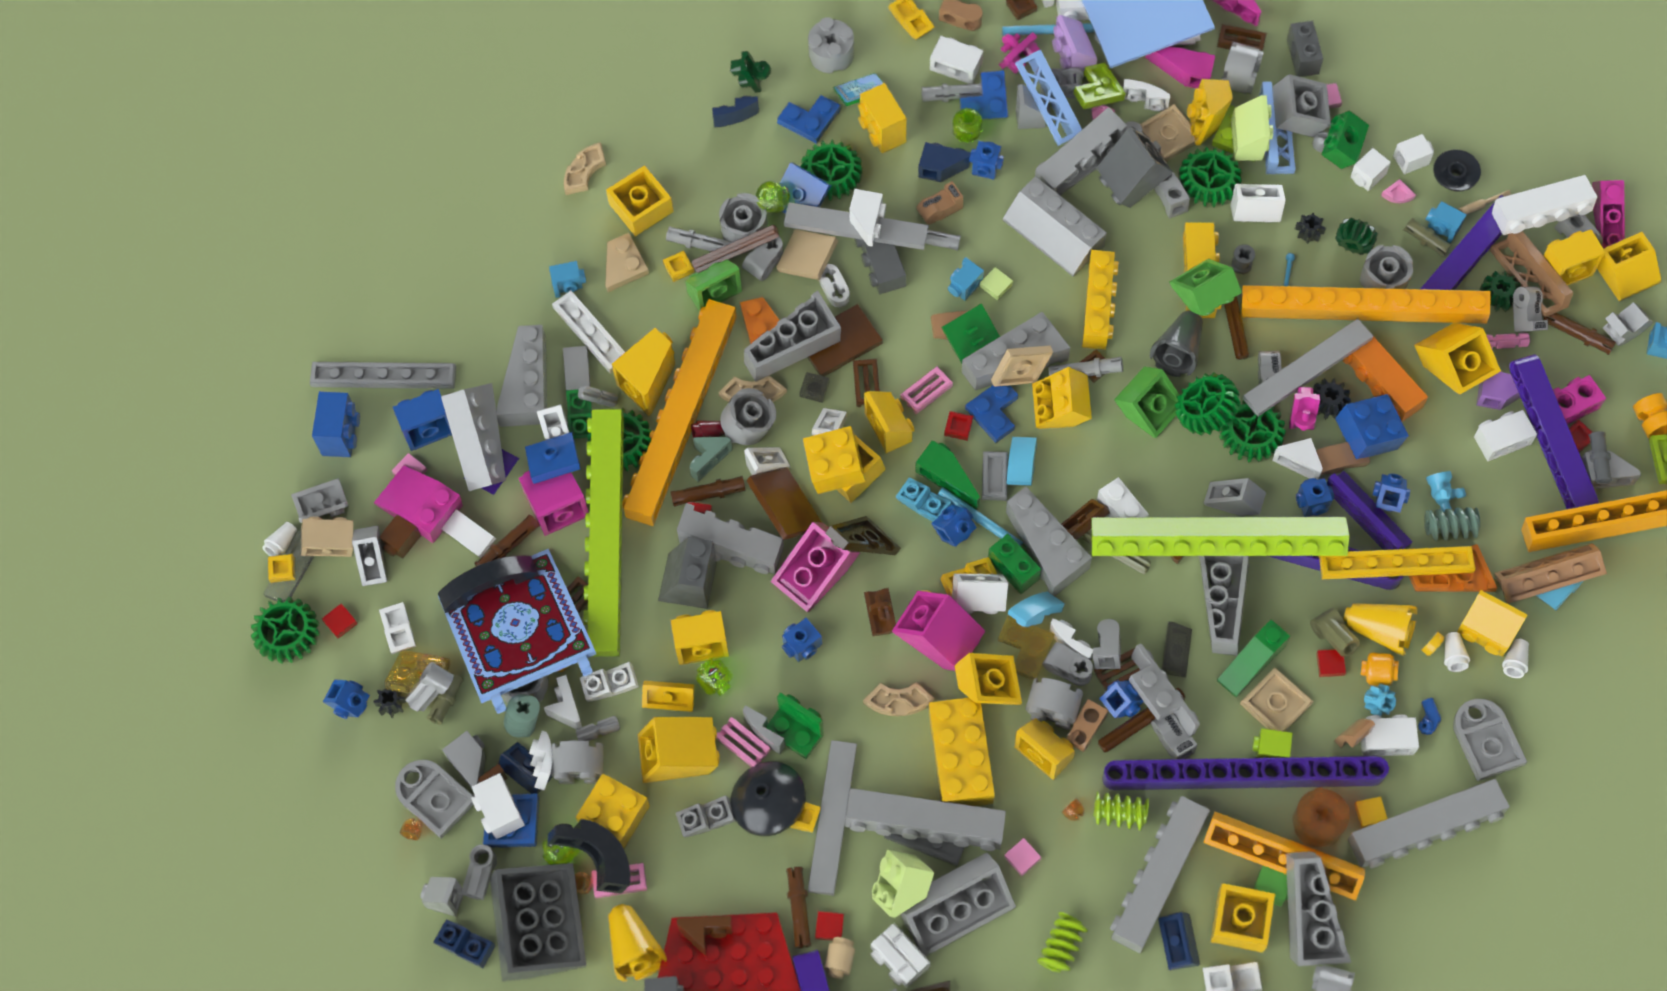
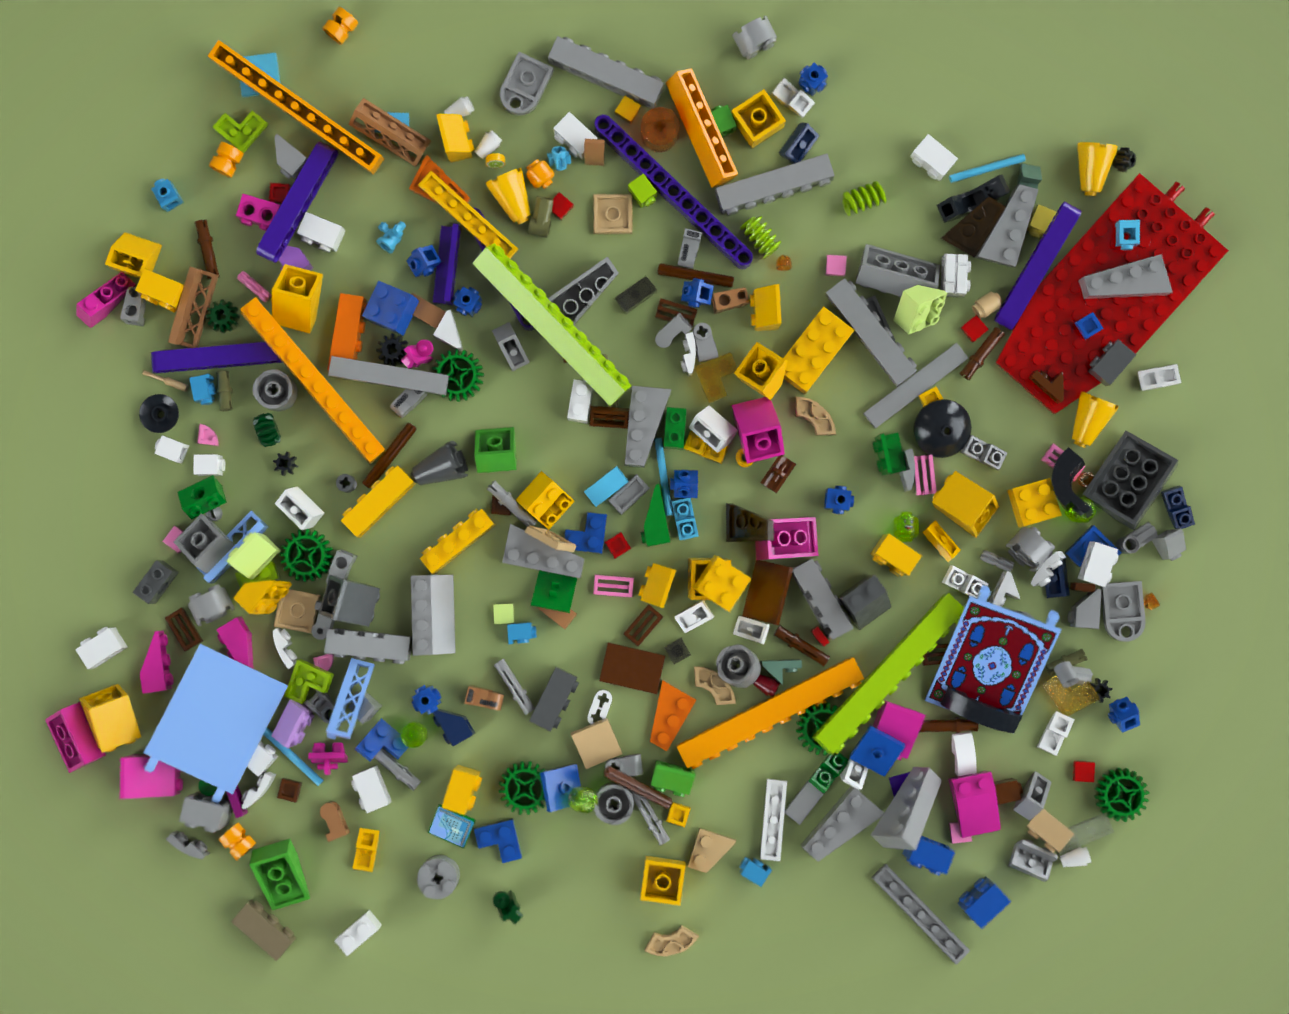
camera: 140 degrees left, 20 degrees up
(281, 568) = (1091, 837): yellow tile -> none
(521, 715) = (1044, 600): sand green piece -> none
(595, 395) = (807, 766): light grey piece -> none
(645, 369) = (768, 756): yellow slope -> none
(728, 115) = (535, 886): dark blue slope -> none
(793, 338) = (662, 689): light grey wedge -> none
(839, 224) = (553, 729): light grey tile -> none
(865, 214) = (543, 727): white slope -> none
(1034, 608) = (691, 389): medium azure slope -> none
(1054, 702) = (737, 326): light grey brick -> none
(1158, 692) = (678, 274): light grey bracket -> none
(1206, 286) = (392, 481): bright green slope -> none
(1207, 403) = (475, 424): green gear -> none
(1254, 658) = (600, 247): green slope -> none
(1290, 257) = (316, 459): dark azure hinge -> none
(1312, 915) = (725, 80): light grey wedge -> none
(1431, 719) = (541, 123): blue arm -> none
(1452, 522) = (408, 212): sand green piece -> none
(1528, 310) = (224, 285): light grey leg -> none
(1544, 205) = (141, 335): white brick -> none
(1600, 457) = (289, 161): dark grey pin -> none
(1627, 324) = (175, 225): light grey brick -> none

